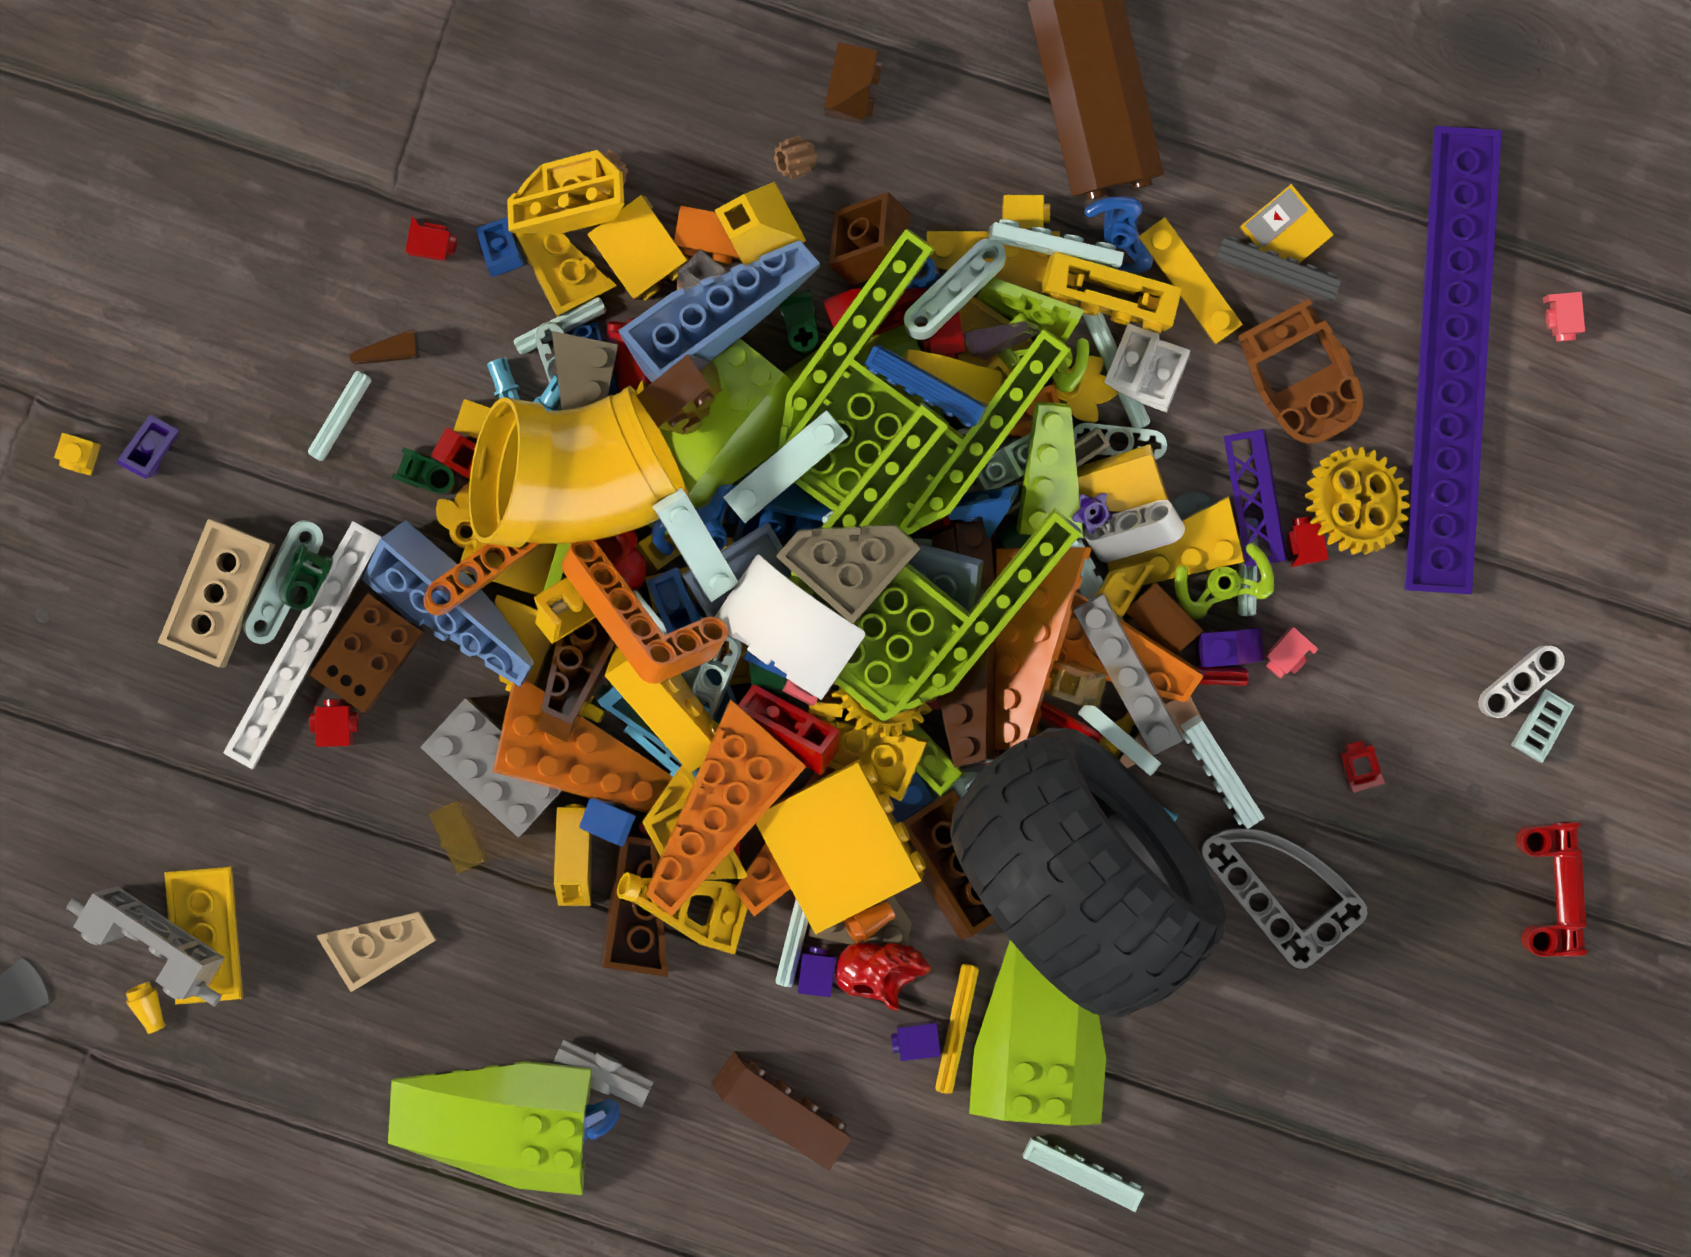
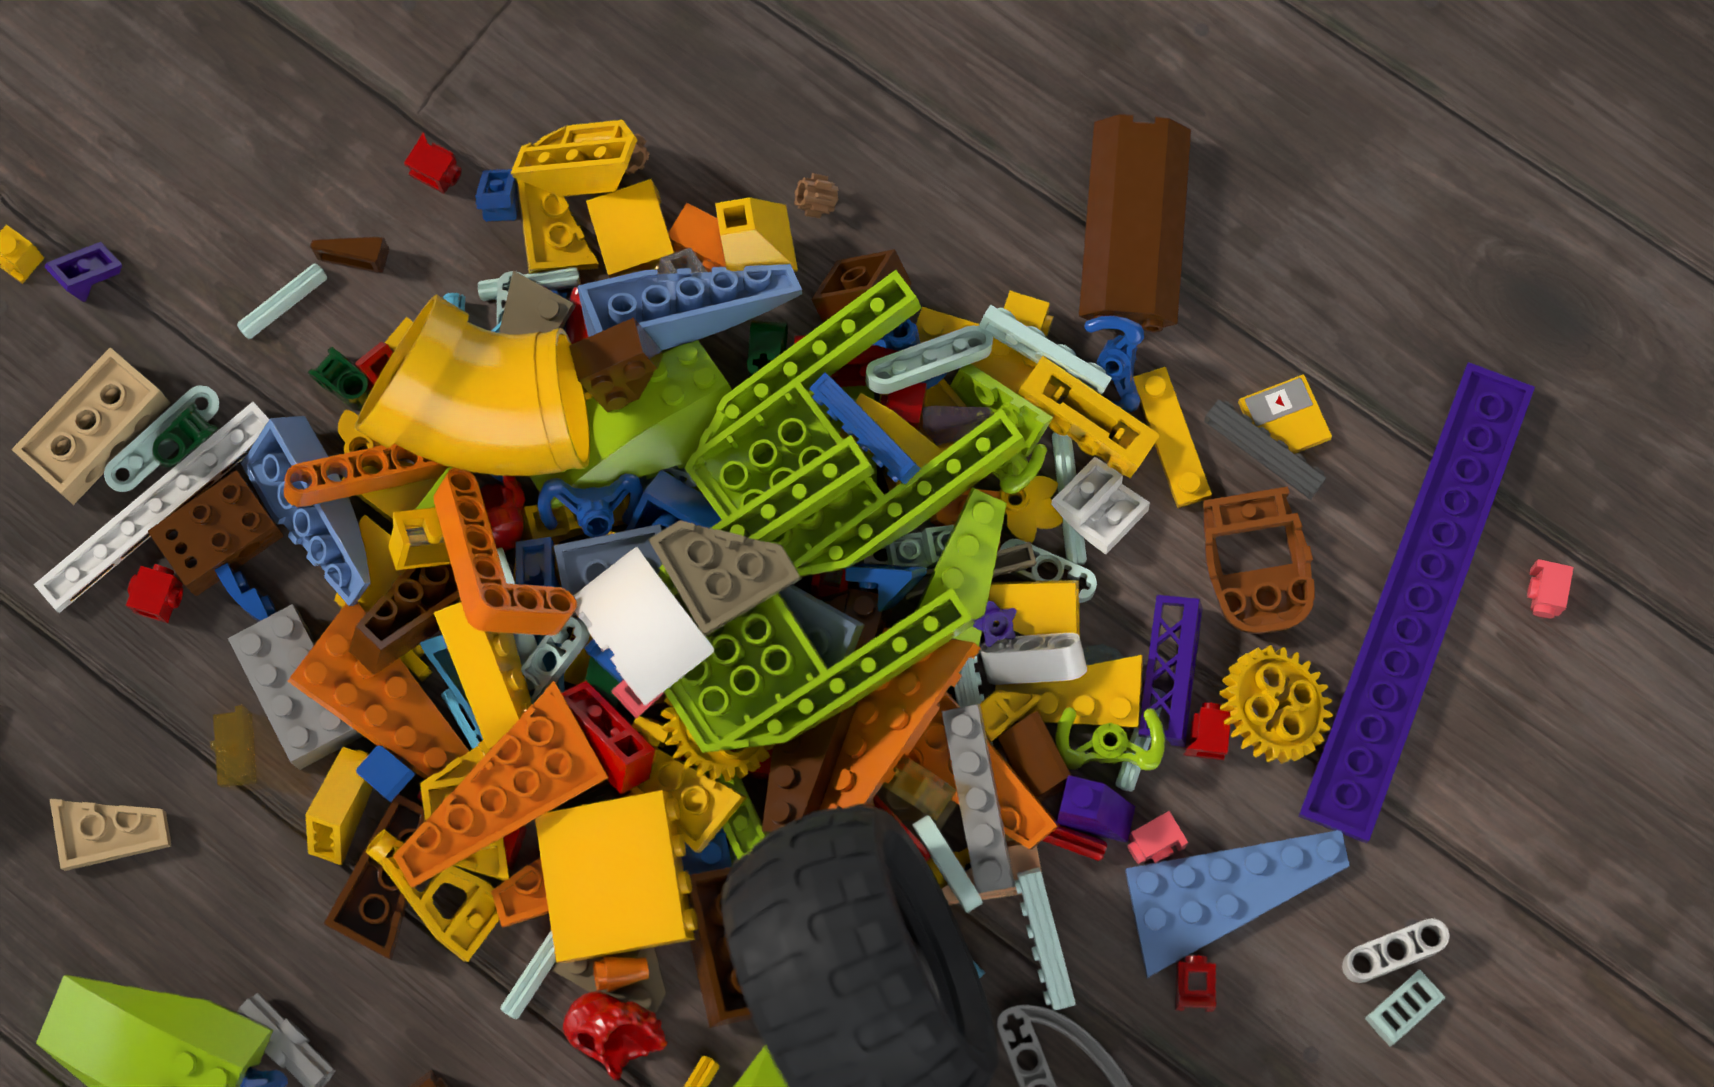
camera: 25 degrees right, 15 degrees down
(426, 705) = (251, 601): none -> blue slope
(695, 544) = (573, 506): light aqua plate -> none
(786, 466) = (695, 467): light aqua plate -> none
(817, 972) = (546, 1010): dark purple brick -> none
(851, 83) = (895, 141): reddish brown slope -> none
(1346, 686) = (1206, 896): none -> medium blue wing

